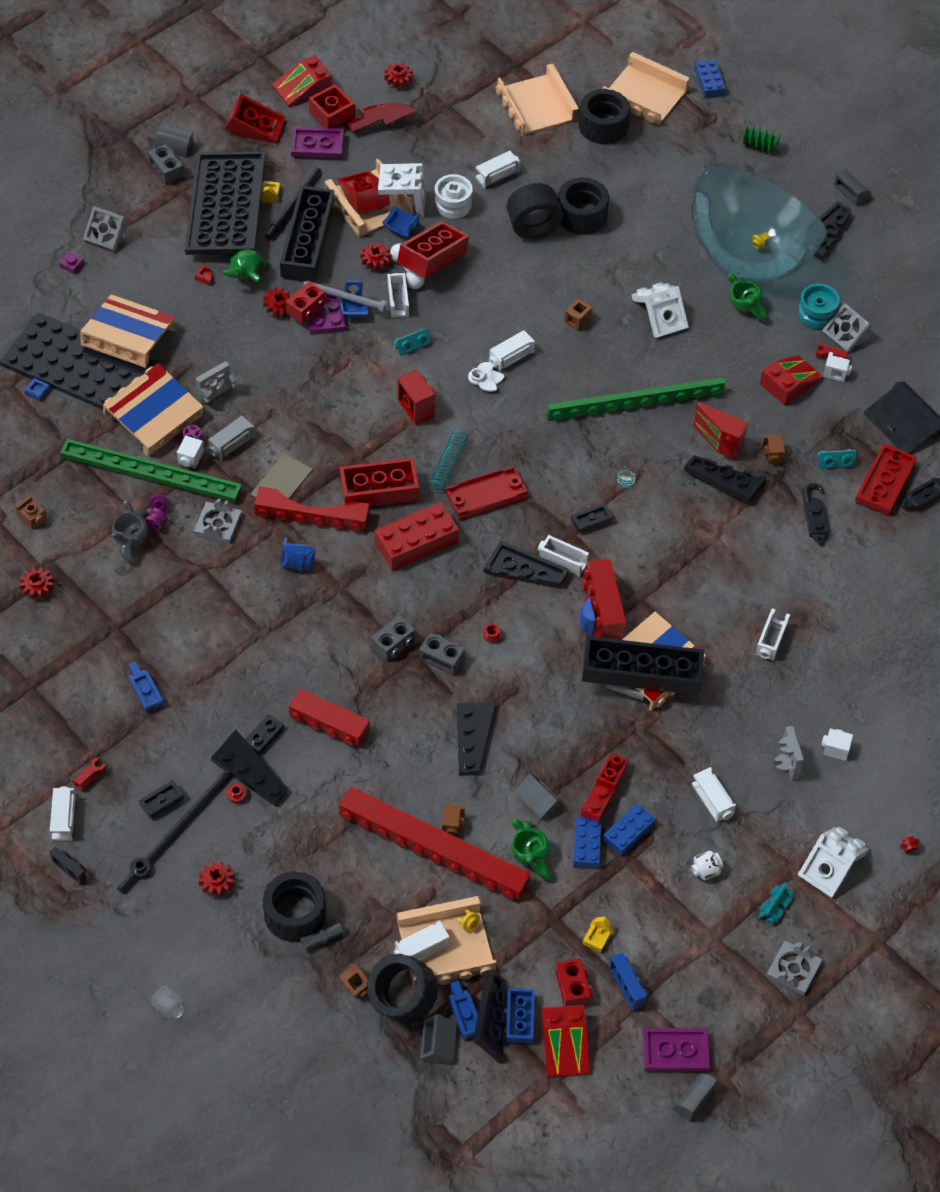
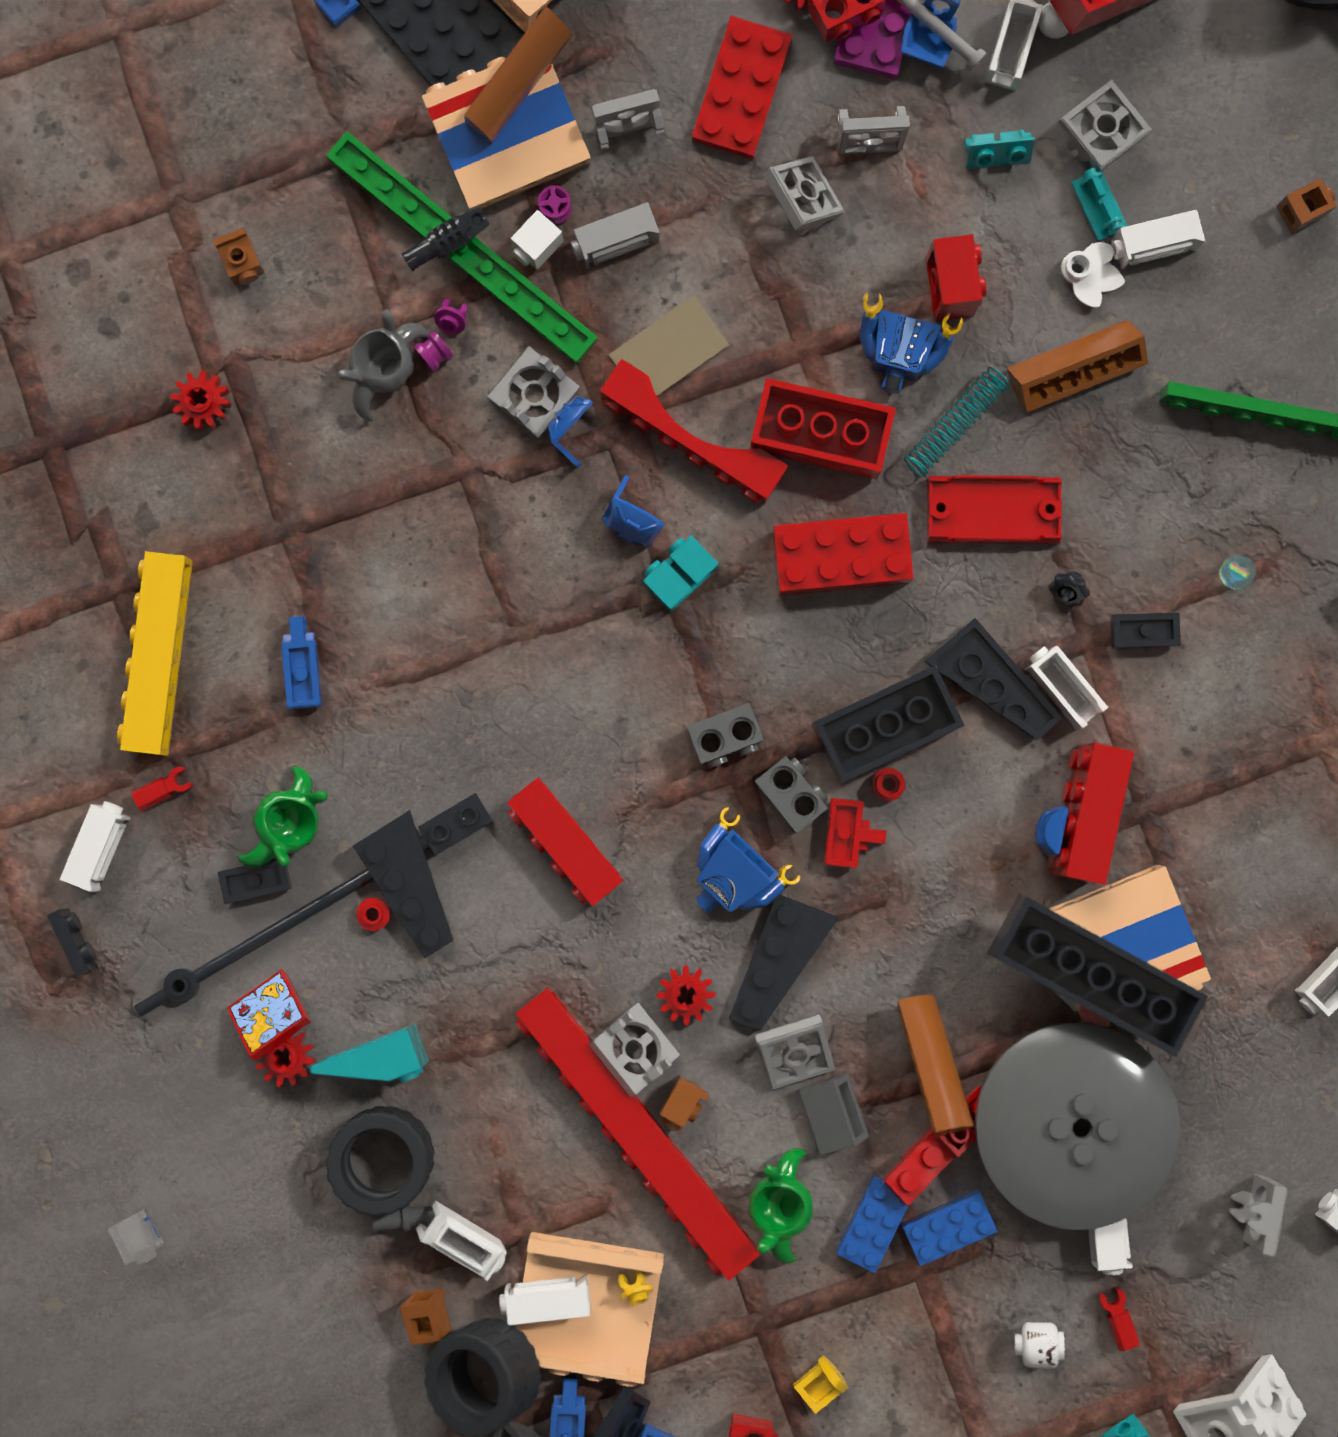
camera: 25 degrees right, 30 degrees up
(60, 709) = (155, 653): none -> yellow brick
(142, 464) = (447, 238): none -> black hinge
(151, 377) = (518, 75): none -> dark orange brick
(167, 759) = (285, 821): none -> green piece
(198, 858) = (268, 1015): none -> tile
(240, 526) = (564, 420): none -> blue piece
(267, 358) = (742, 87): none -> red plate
(269, 855) = (384, 1058): none -> teal slope
(321, 385) = (808, 173): none -> light grey piece
(334, 574) = (680, 573): none -> teal piece
(354, 355) = (873, 136): none -> light grey piece
(359, 930) = (463, 1241): none -> white window
(401, 803) = (603, 1048): none -> light grey piece
(403, 436) = (903, 344): none -> blue torso
(429, 698) = (736, 872): none -> blue torso
(429, 767) = (673, 991): none -> red gear
(465, 304) = (1122, 109): none -> light grey piece
(473, 347) = (1098, 204): none -> teal hinge
(477, 601) = (887, 724): none -> black brick
(482, 661) = (848, 833): none -> red hinge
(483, 766) = (819, 1065): none -> light grey piece
(498, 416) = (1078, 365): none -> dark orange brick
(543, 512) = (1069, 589): none -> black piece
(579, 748) = (934, 1065): none -> dark orange brick
(668, 769) = (1029, 1116): none -> dark grey dish
(744, 840) = (1120, 1321): none -> red bar

